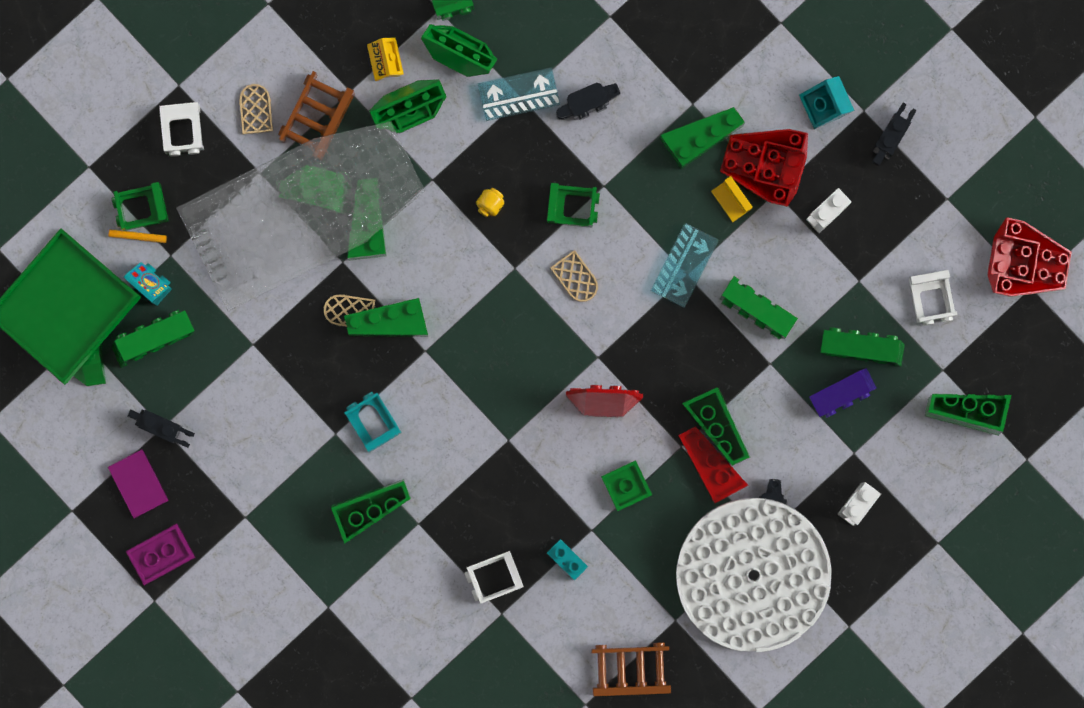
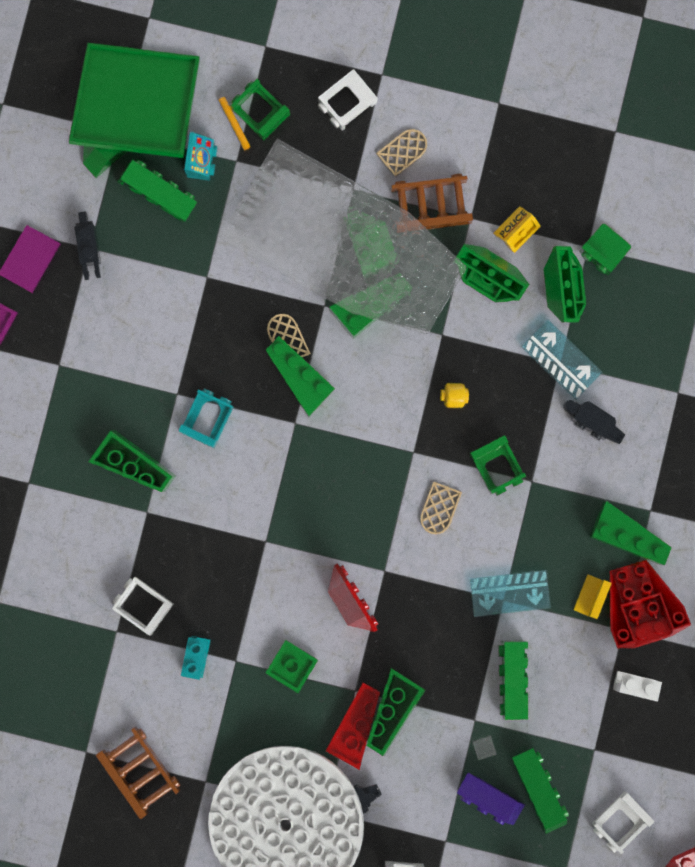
camera: 55 degrees right, 0 degrees up
(797, 370) = (484, 747): none -> clear tile

